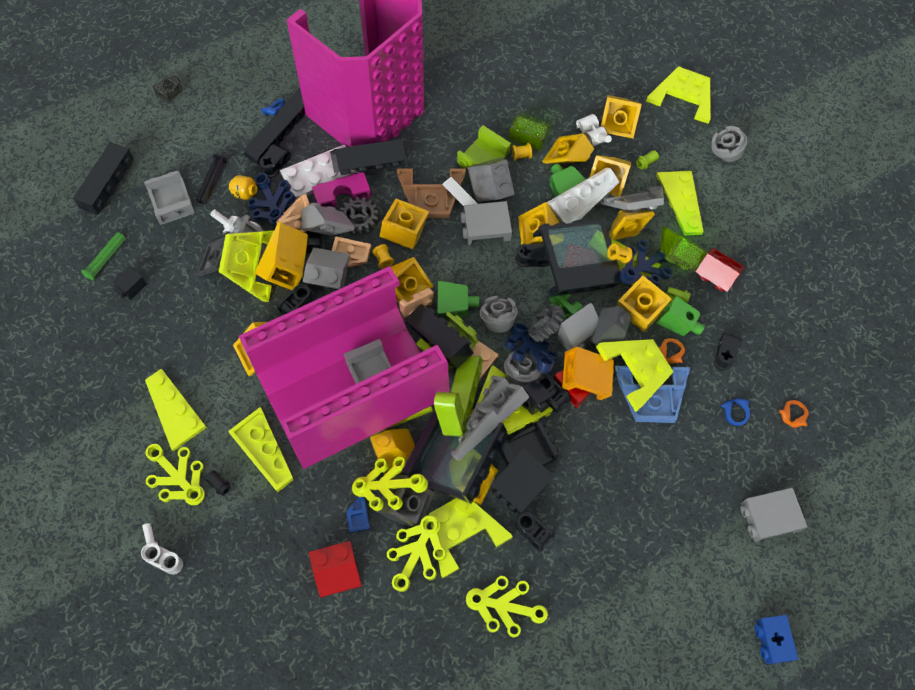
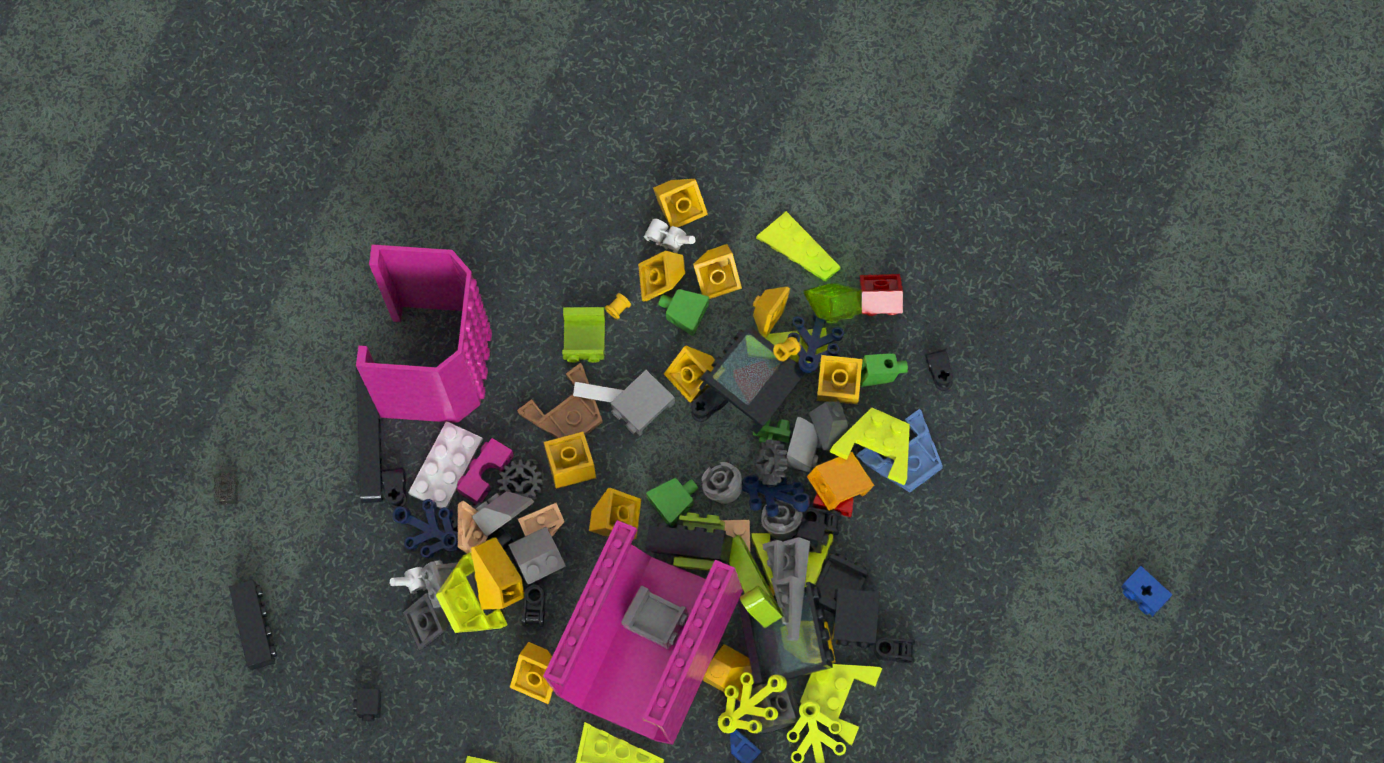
camera: 30 degrees left, 5 degrees up
(104, 255) = (319, 696): bright green axle -> none
(169, 197) = (329, 596): light grey panel -> none
(211, 178) = (350, 549): black axle -> none
(243, 187) = (389, 535): yellow head -> none
(271, 110) = (341, 442): blue piece -> none
(367, 156) = (484, 419): black brick -> none
(383, 256) = (575, 505): yellow bush -> none
(425, 298) = (646, 519): light nougat wing -> none
(491, 180) = (616, 358): flat silver slope -> none
(503, 606) = (917, 729): neon yellow plant -> none
(530, 130) = (608, 277): clear neon green slope -> none
(583, 197) = (711, 316): white wing -> none
(634, 202) = (763, 285): light grey wing -> none
(643, 161) = (736, 233): lime pin -> none
(675, 358) = (902, 406): orange piece -> none
(684, 295) = (861, 346): lime pin -> none
(686, 86) = (720, 120): neon yellow wing -> none
(727, 409) = (974, 418): blue piece -> none
(729, 144) = (802, 160): light grey cone -> none
(773, 514) = (1075, 489): light grey panel -> none
(801, 421) = (1026, 389): orange piece -> none

